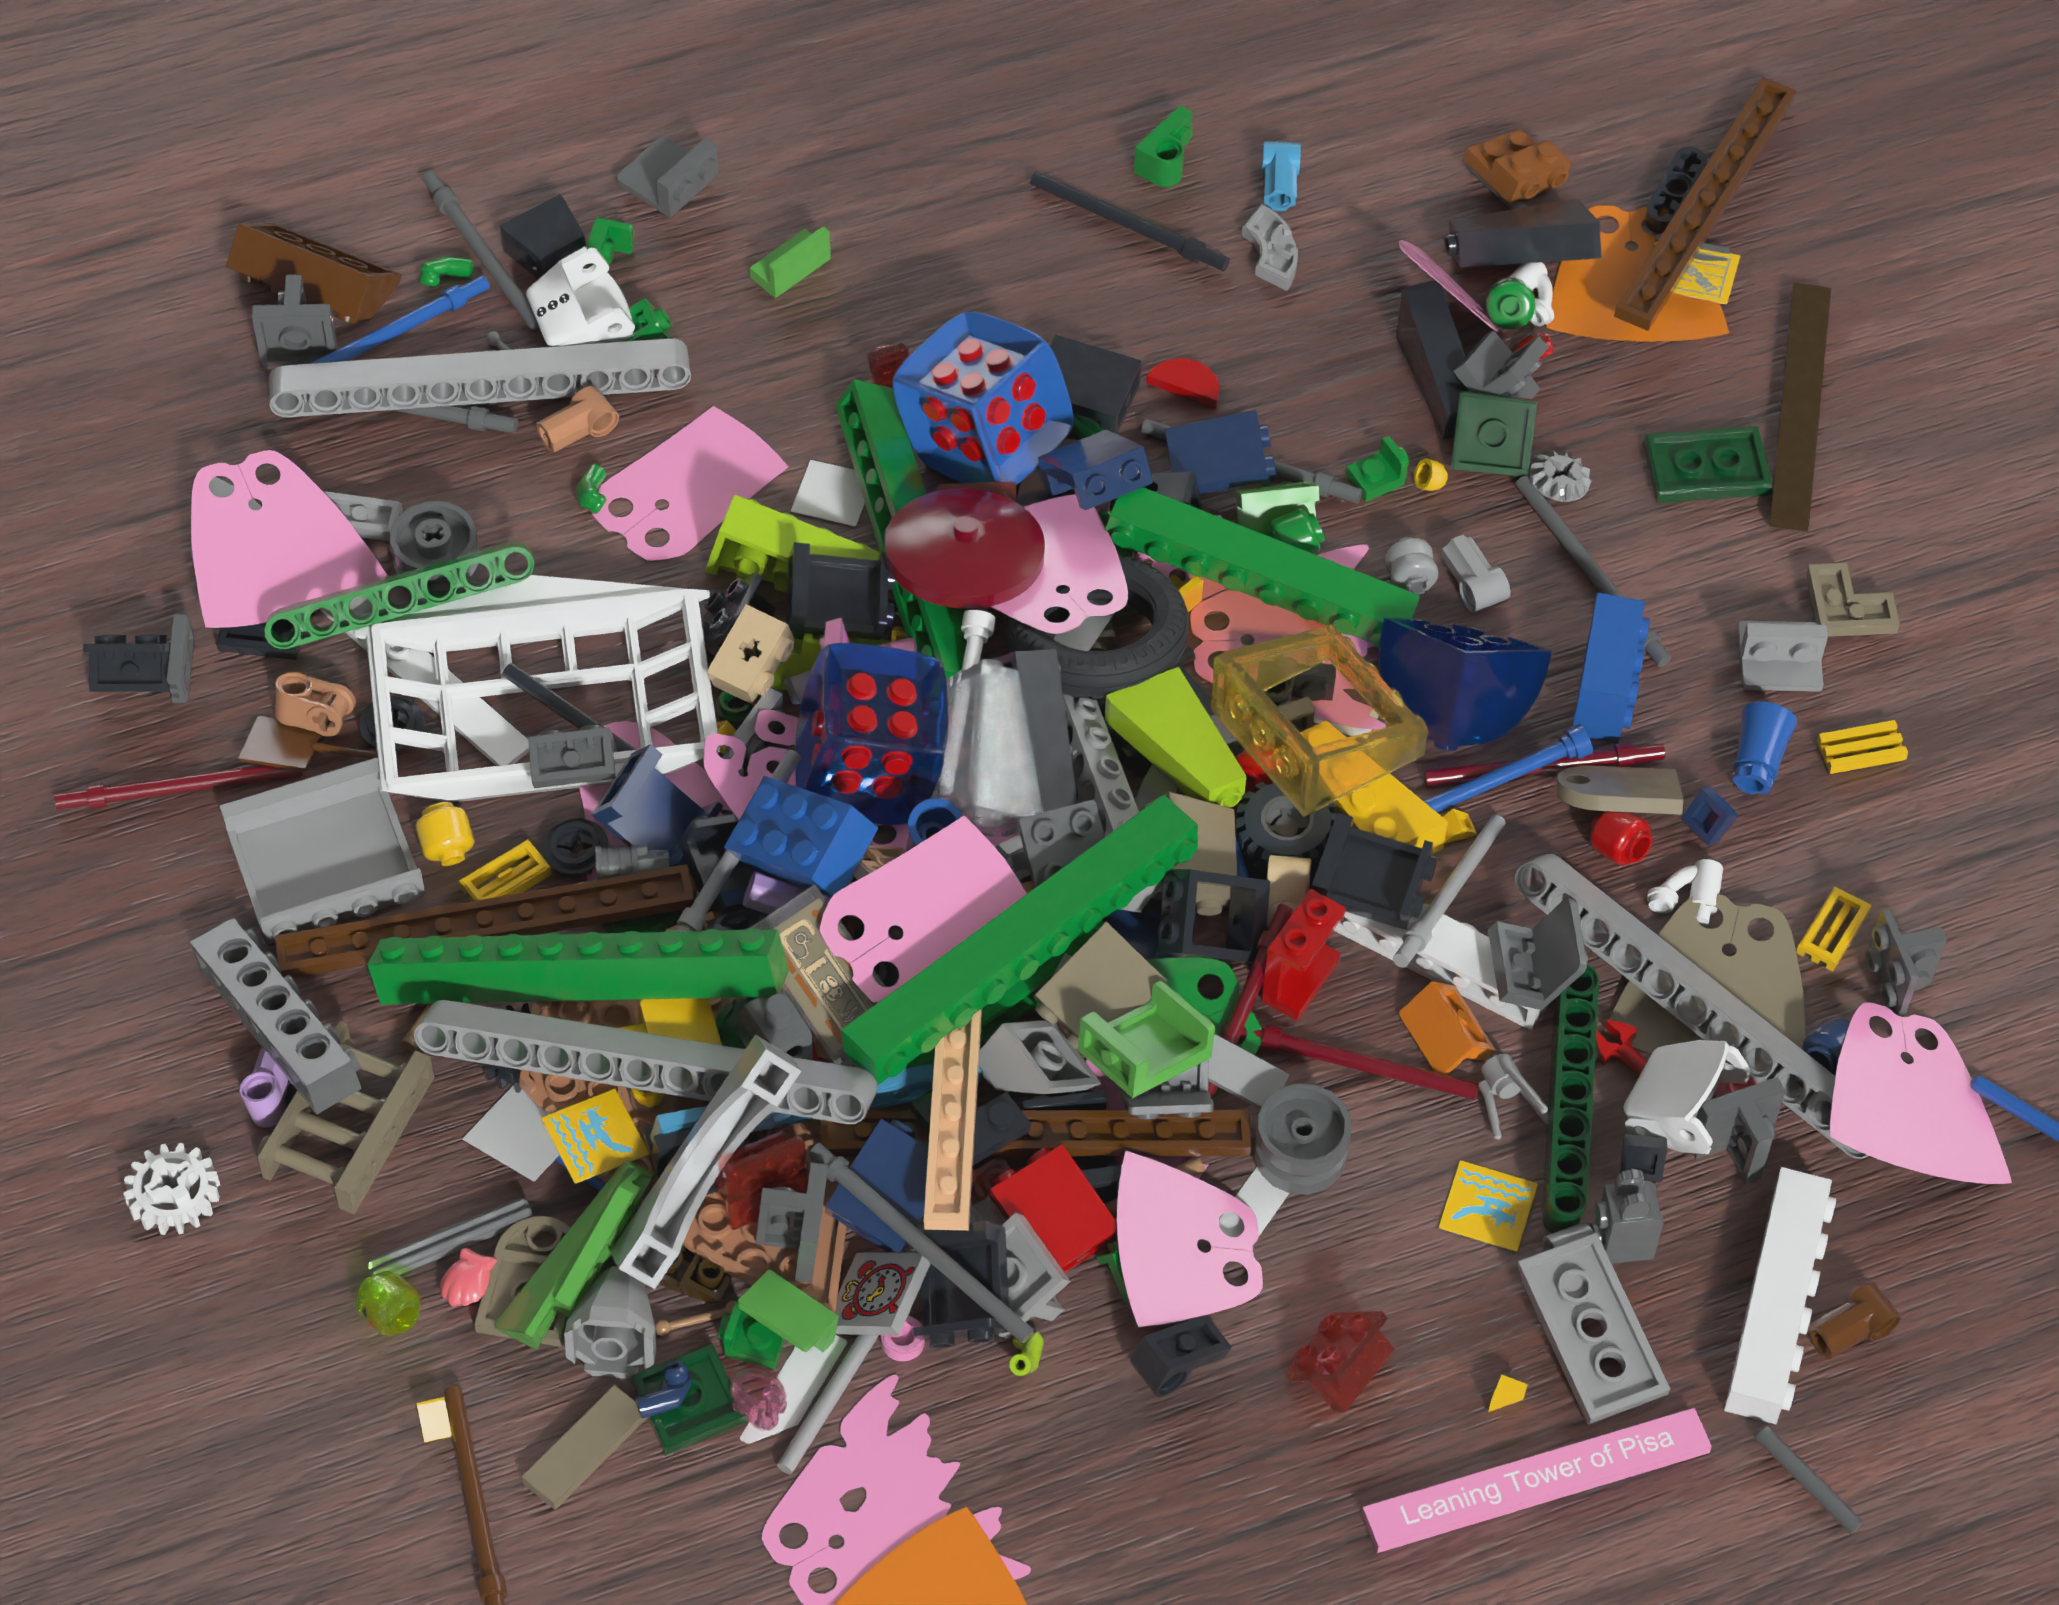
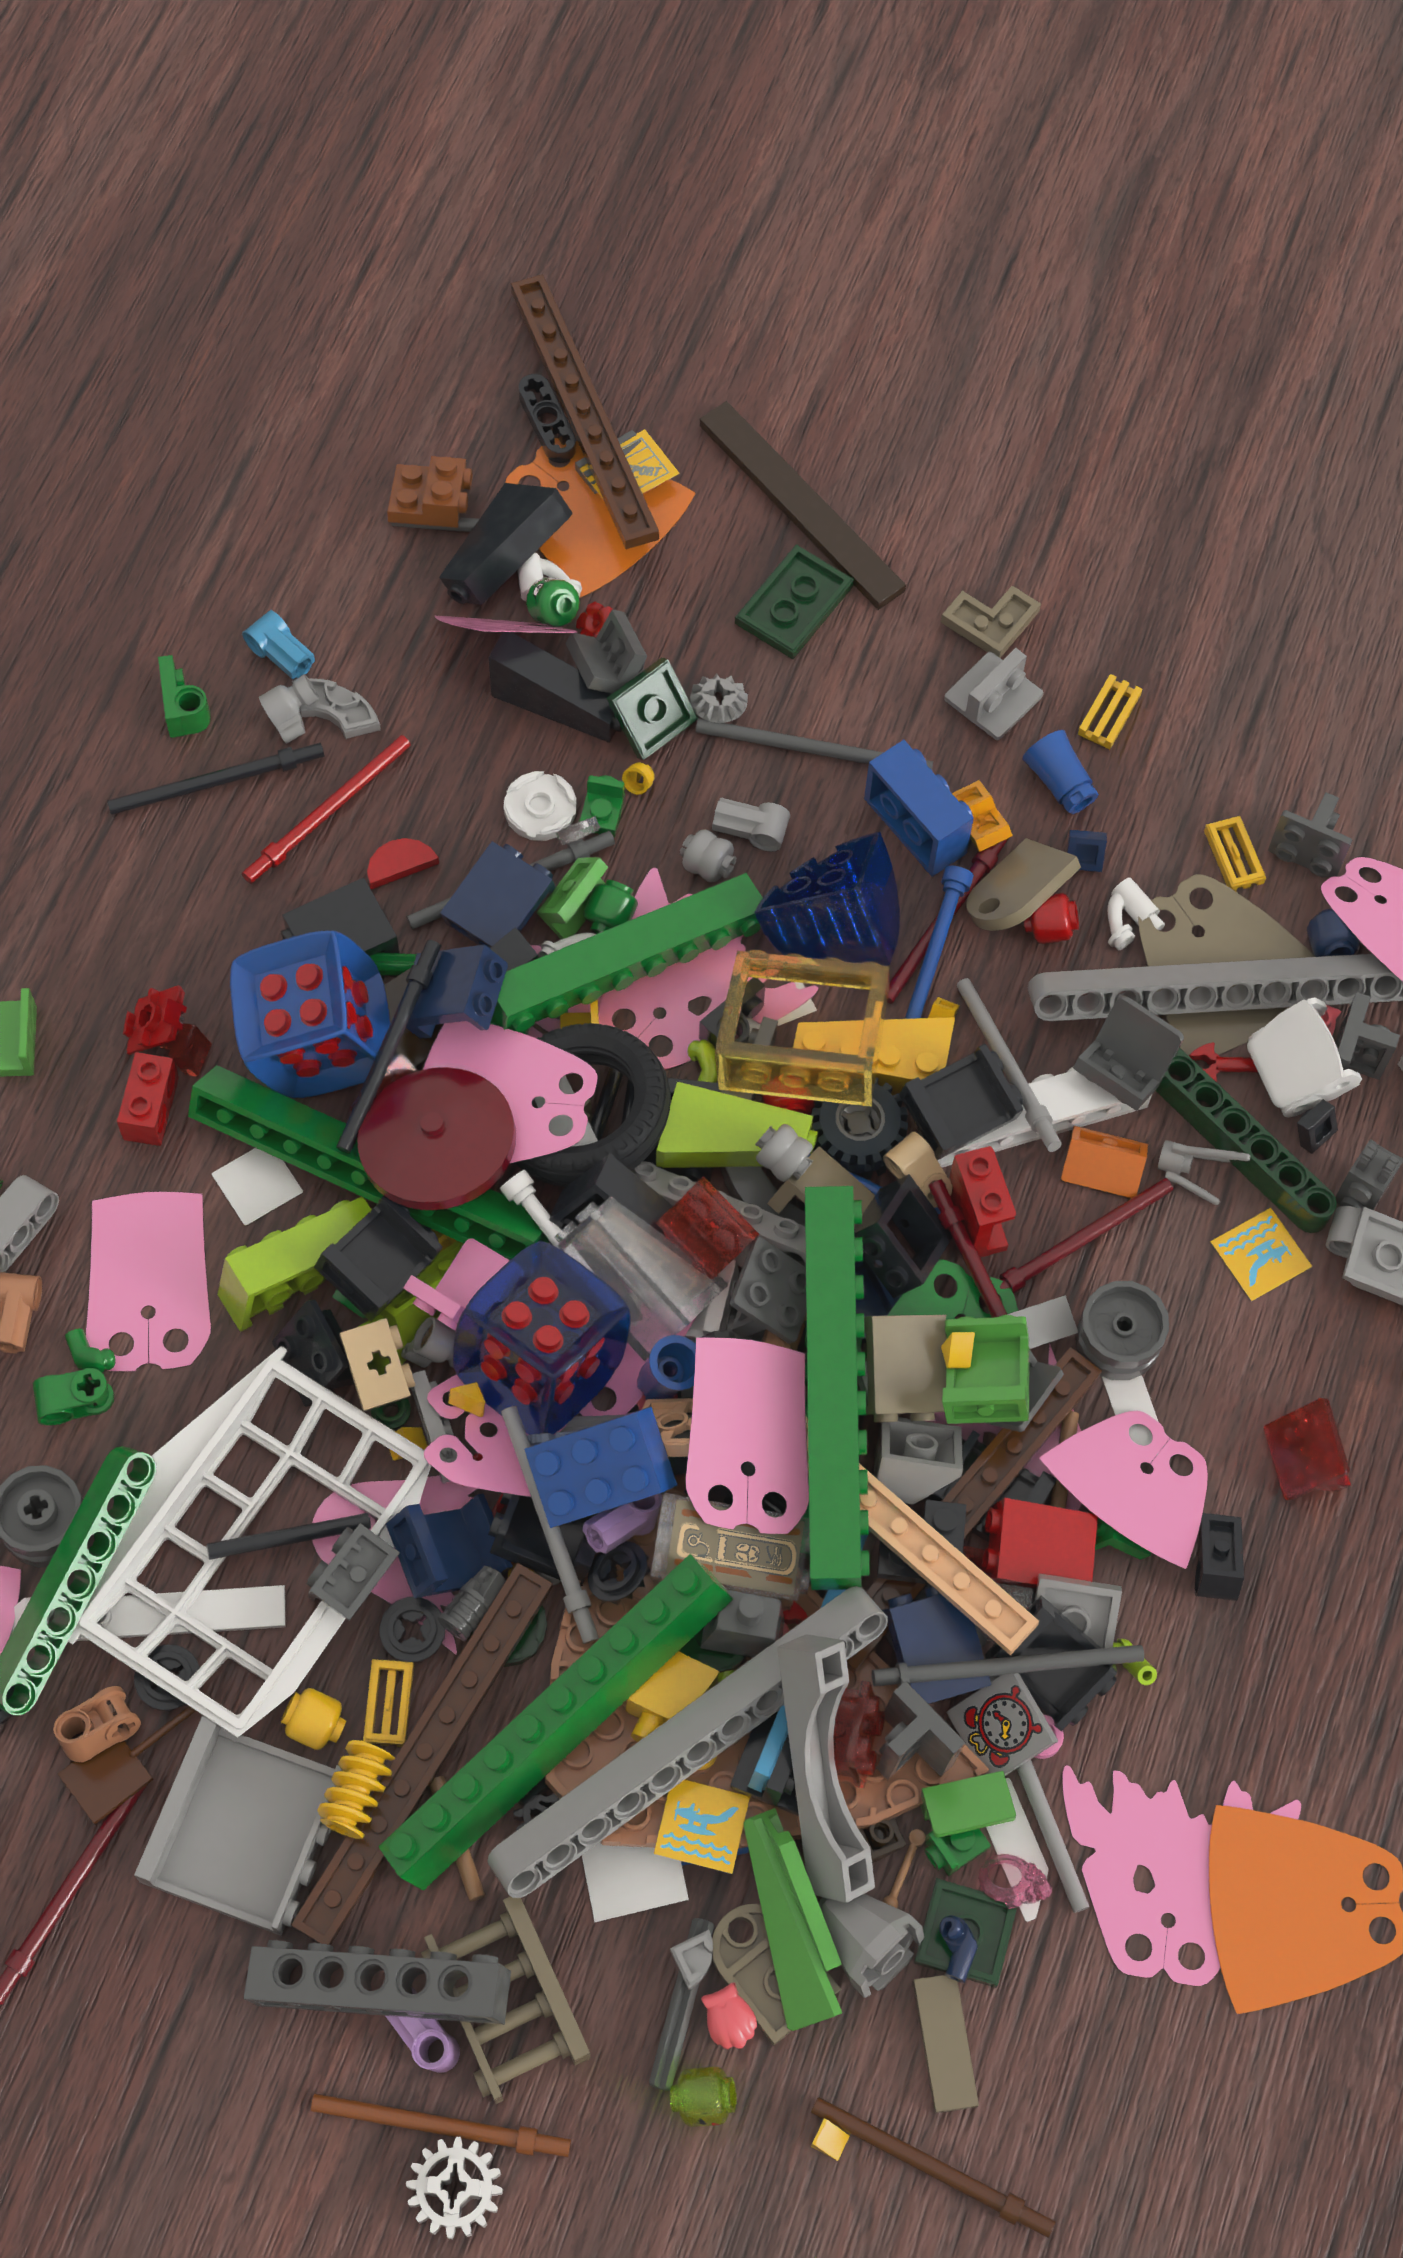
camera: 50 degrees left, 10 degrees up
(248, 1210) = (525, 2140): none -> dark orange bar
(409, 887) = (354, 1787): none -> yellow piece
(489, 1215) = (694, 1958): none -> light grey tile
(547, 504) = (67, 1396): none -> green piece
(784, 732) = (468, 1398): none -> yellow piece
(822, 371) = (148, 1099): none -> red brick
(888, 325) = (155, 1019): none -> red piece
(1063, 761) = (707, 1228): none -> clear red bracket
(1078, 437) = (418, 980): none -> black bar
(1107, 301) = (276, 853): none -> red bar
(1145, 1009) = (958, 1349): none -> yellow piece
(1187, 771) = (784, 1152): none -> light grey piece
(1231, 211) = (284, 703): none -> light grey piece
(1335, 433) = (539, 805): none -> white tile
(1335, 466) = (578, 830): none -> clear tile
(1657, 721) = (988, 823): none -> light orange slope

